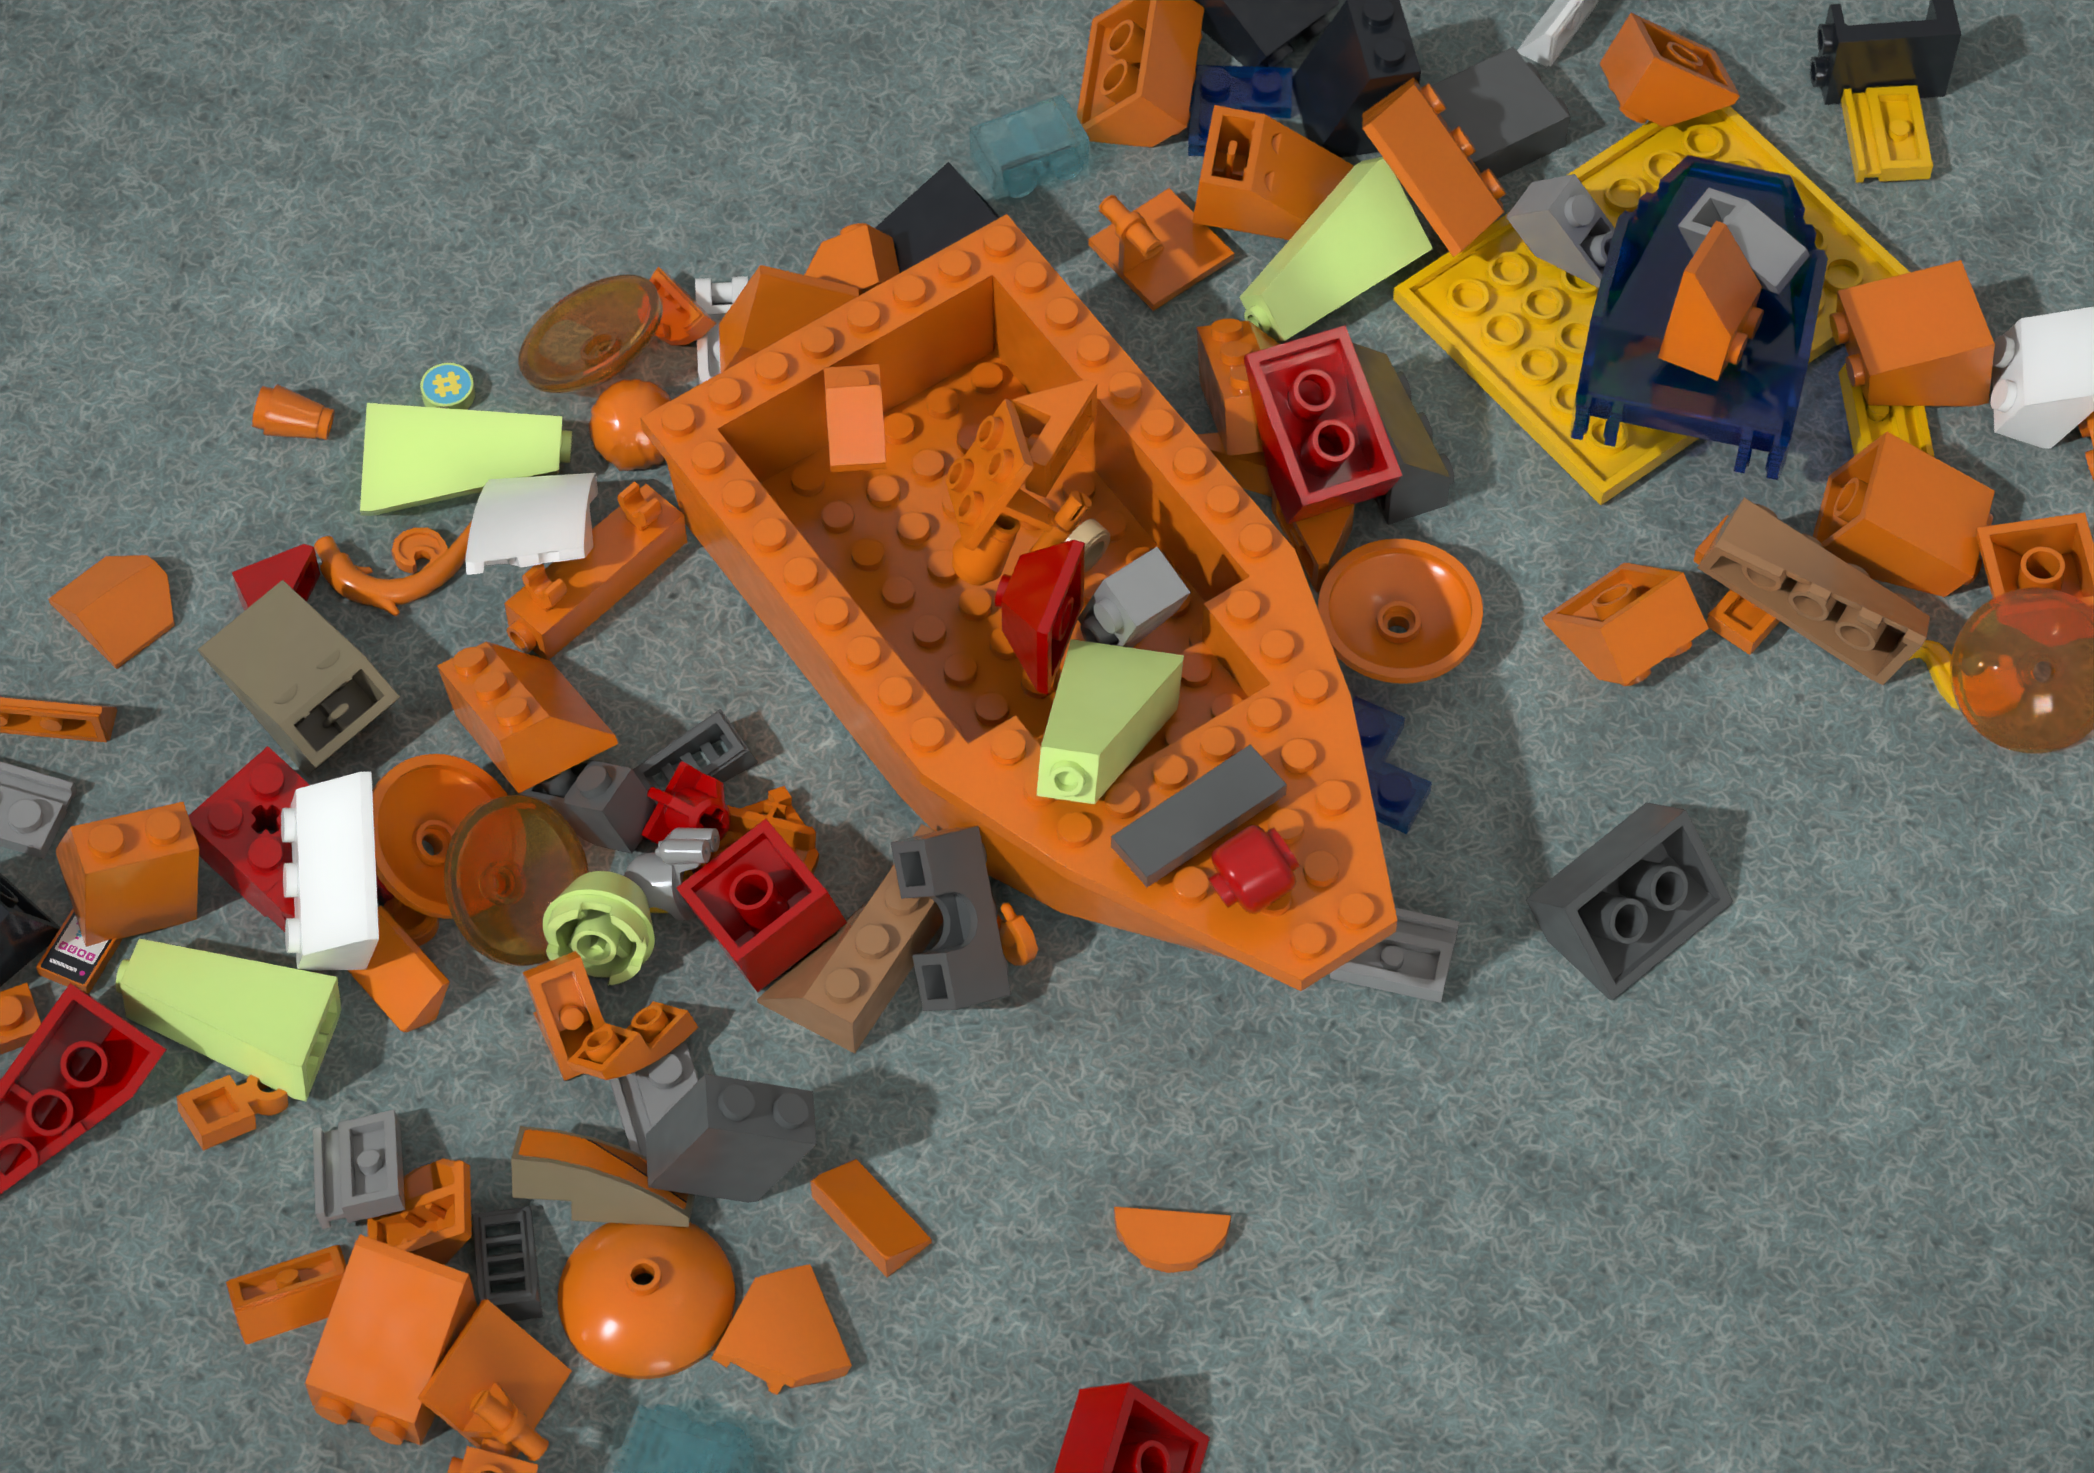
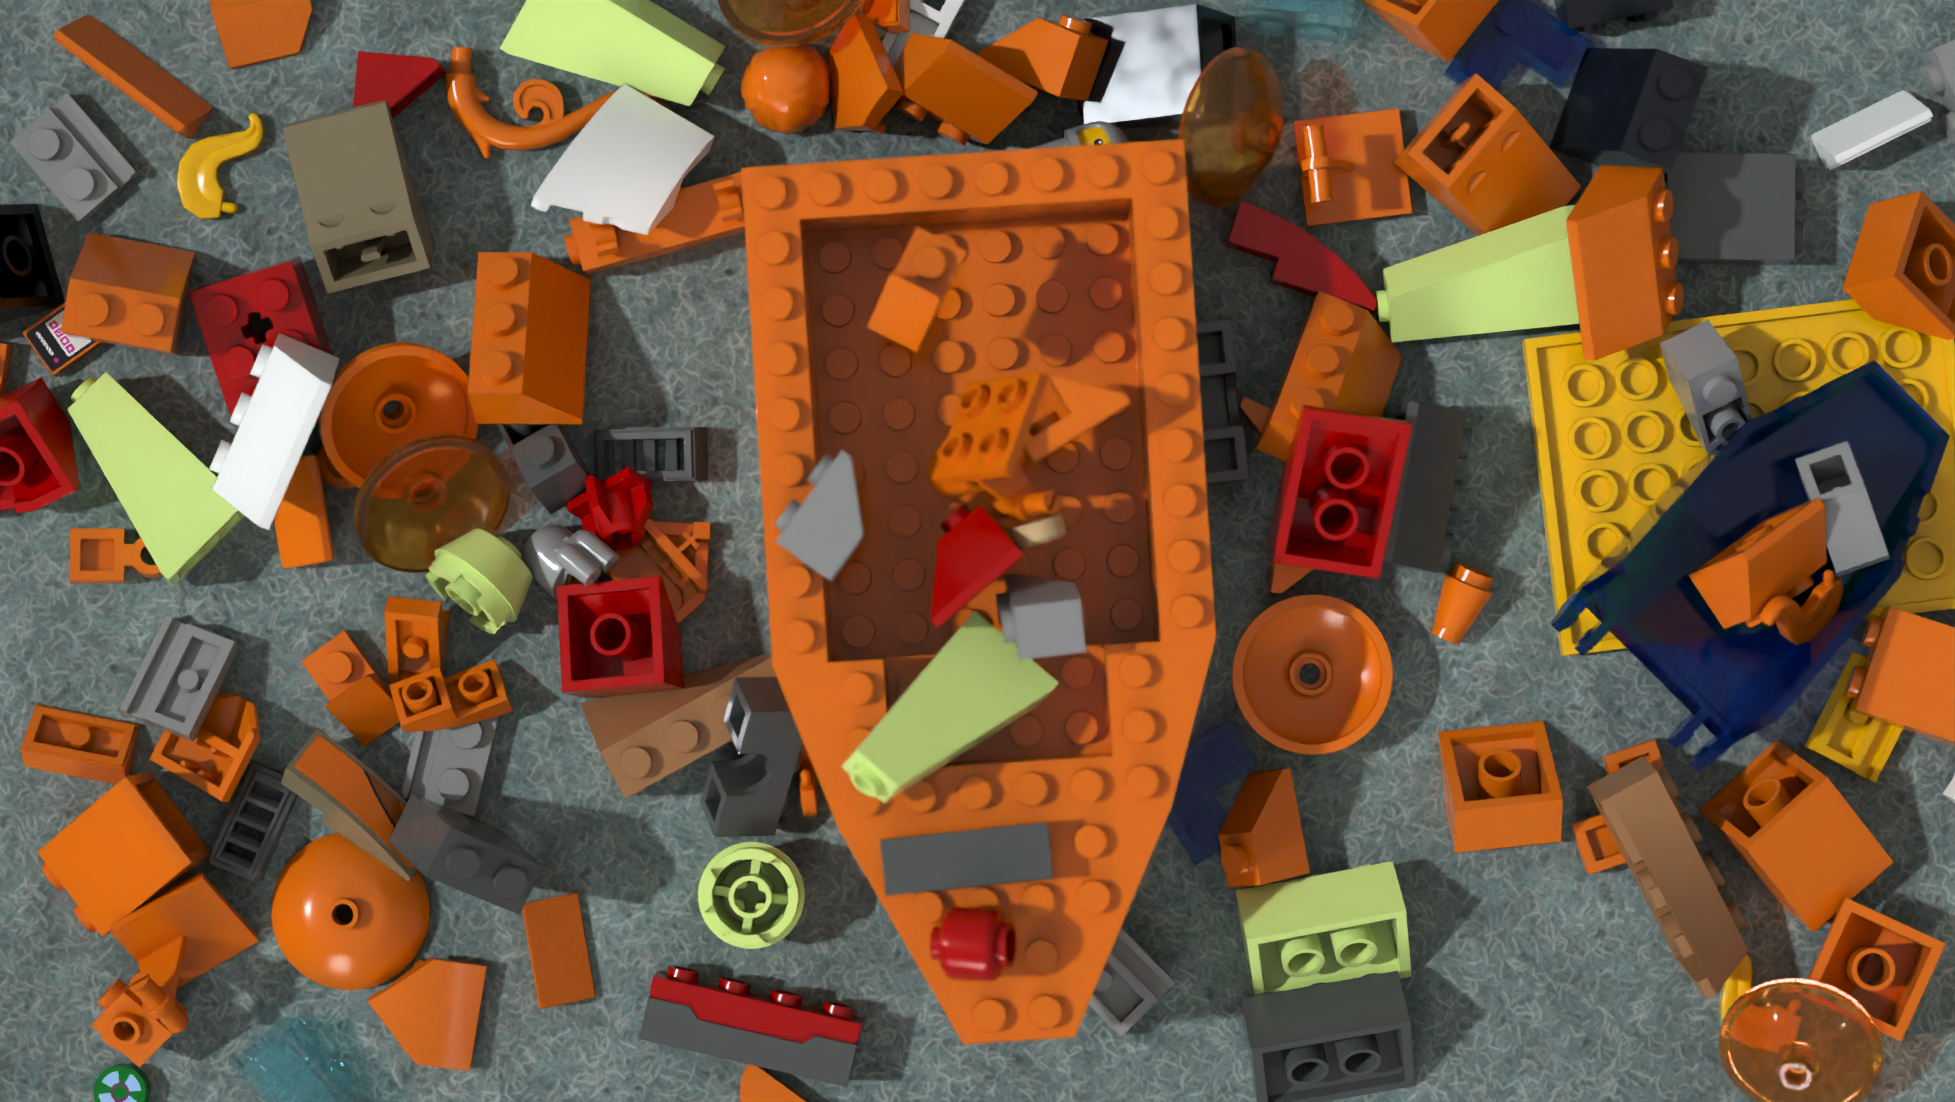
camera: 30 degrees right, 30 degrees up
(131, 751) = (200, 166): none -> yellow piece
(534, 1094) = (353, 688): none -> orange slope
(691, 359) = (861, 78): none -> orange slope
(896, 614) = (829, 521): none -> light grey slope
(1022, 1047) = (751, 895): none -> yellowish green cone
(1048, 226) = (1231, 126): none -> clear orange dish
(1090, 1173) = (751, 1027): none -> piece
(1160, 323) = (1299, 258): none -> red slope
(1451, 759) = (1263, 832): none -> orange slope
(1486, 503) = (1461, 600): none -> orange cone
(1556, 805) = (1324, 928): none -> yellowish green slope
(1776, 336) = (1805, 622): none -> orange piece

